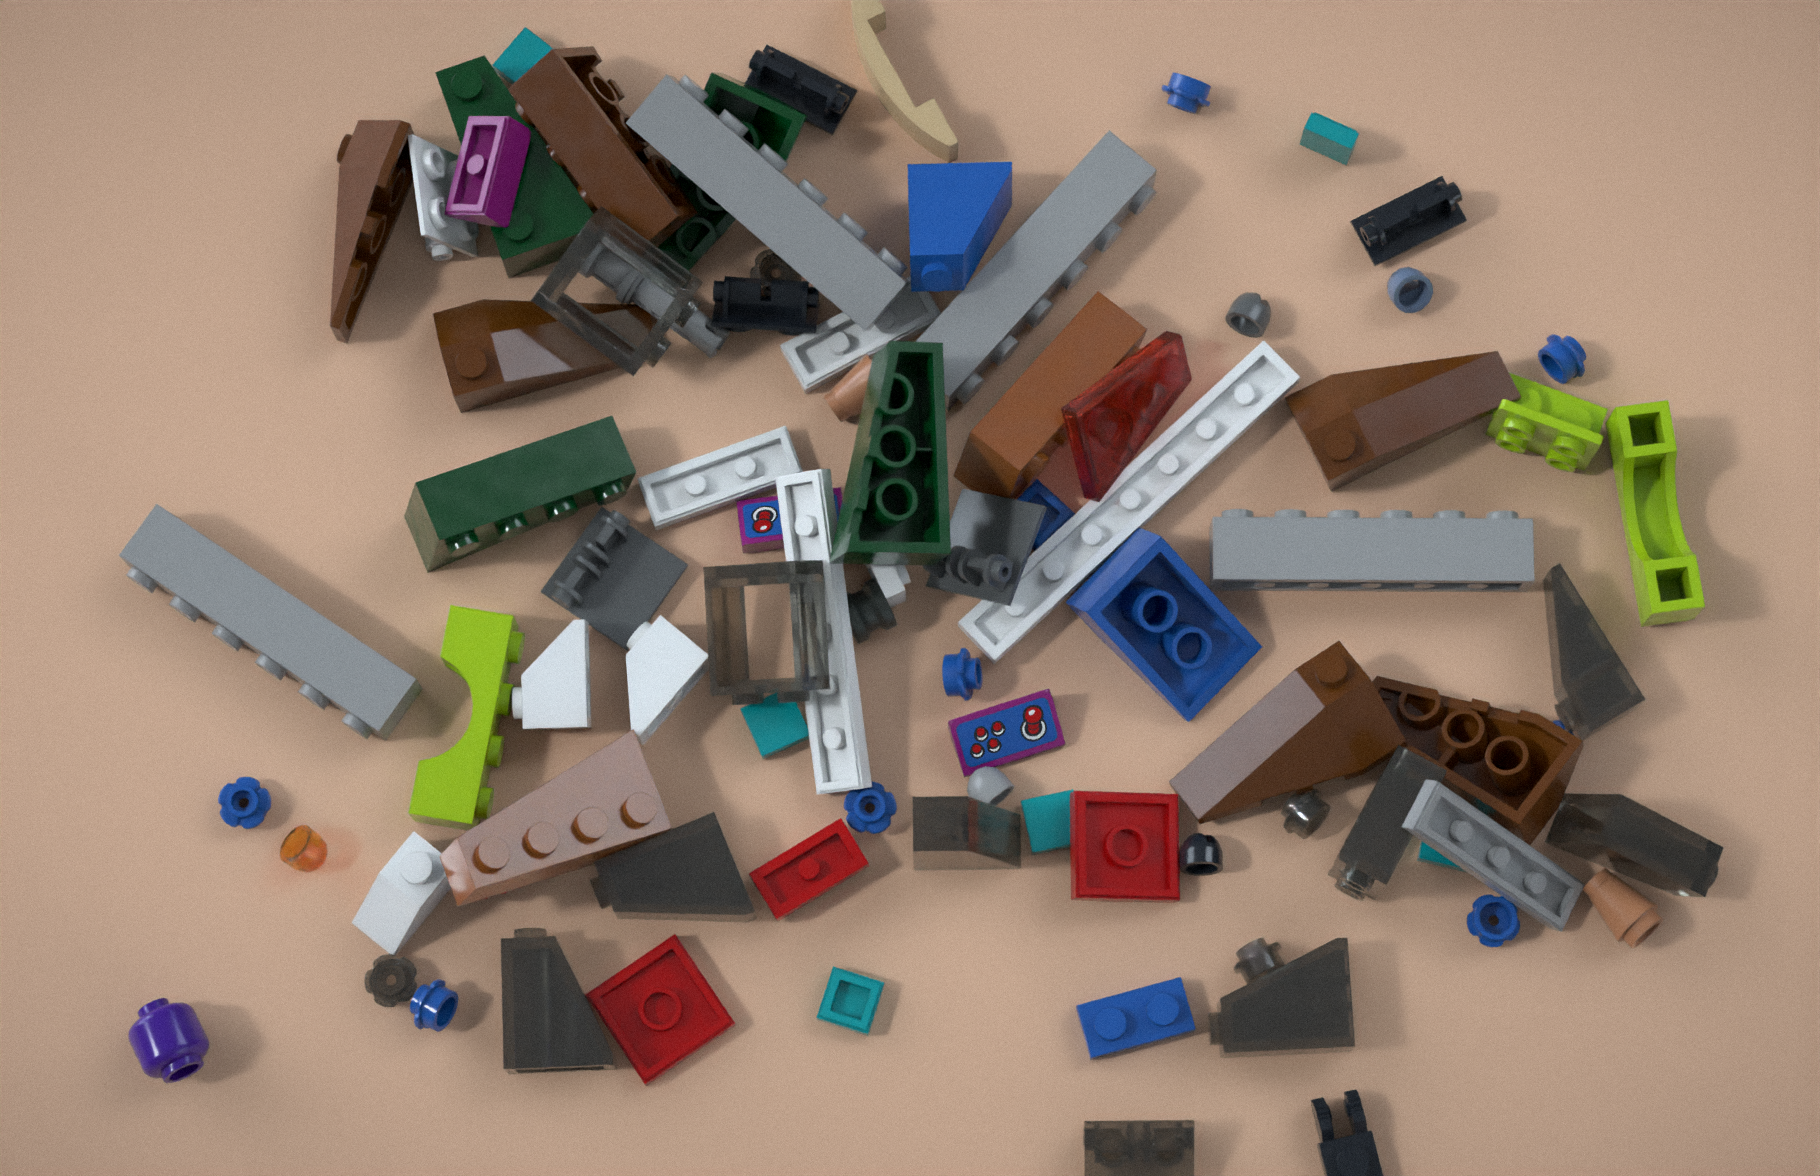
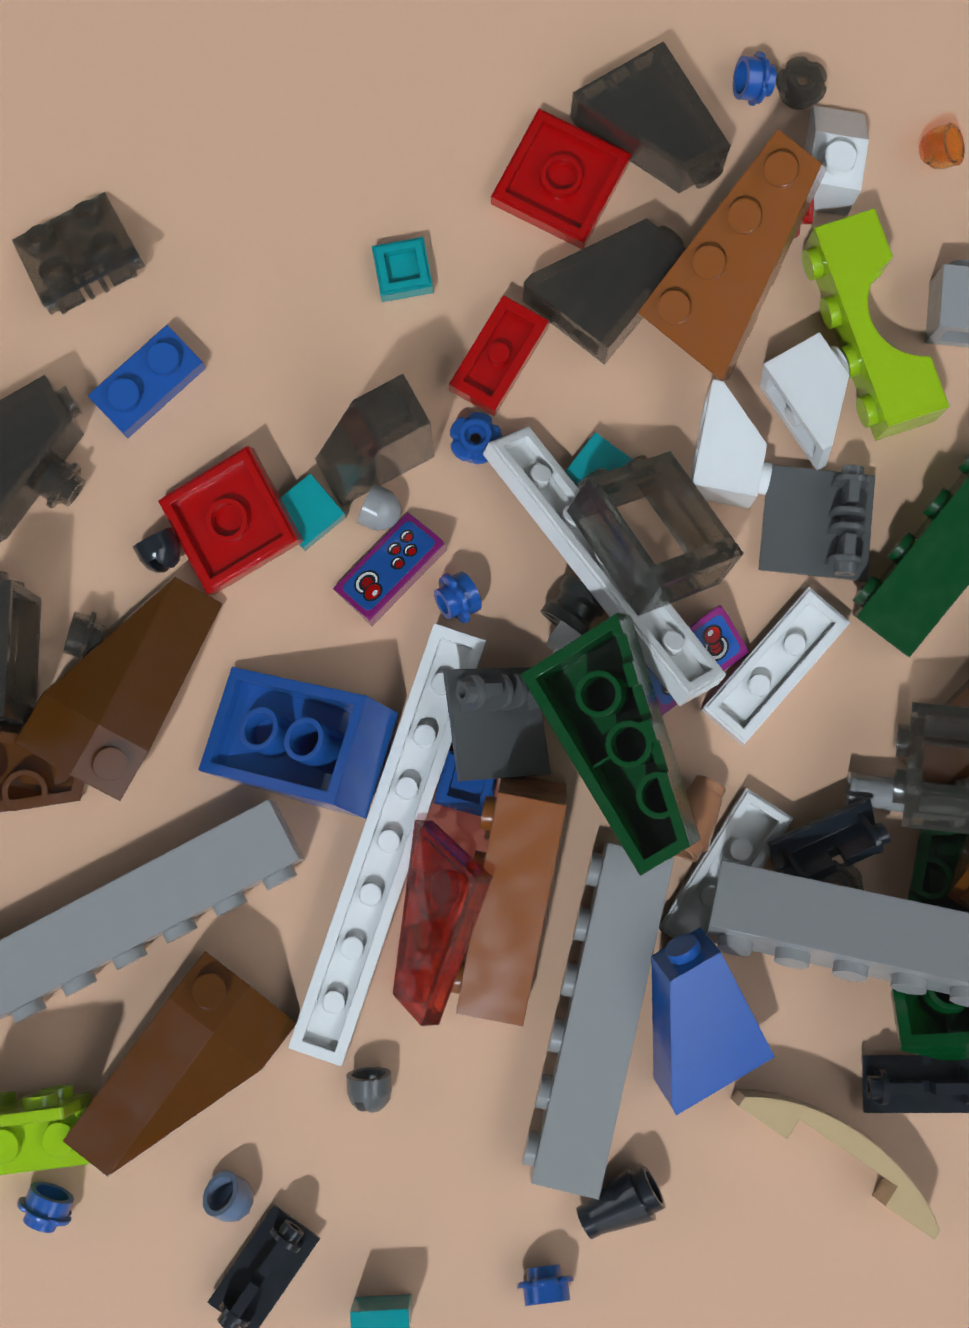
camera: 150 degrees right, 5 degrees up
(1087, 121) = (623, 1203): none -> black cone

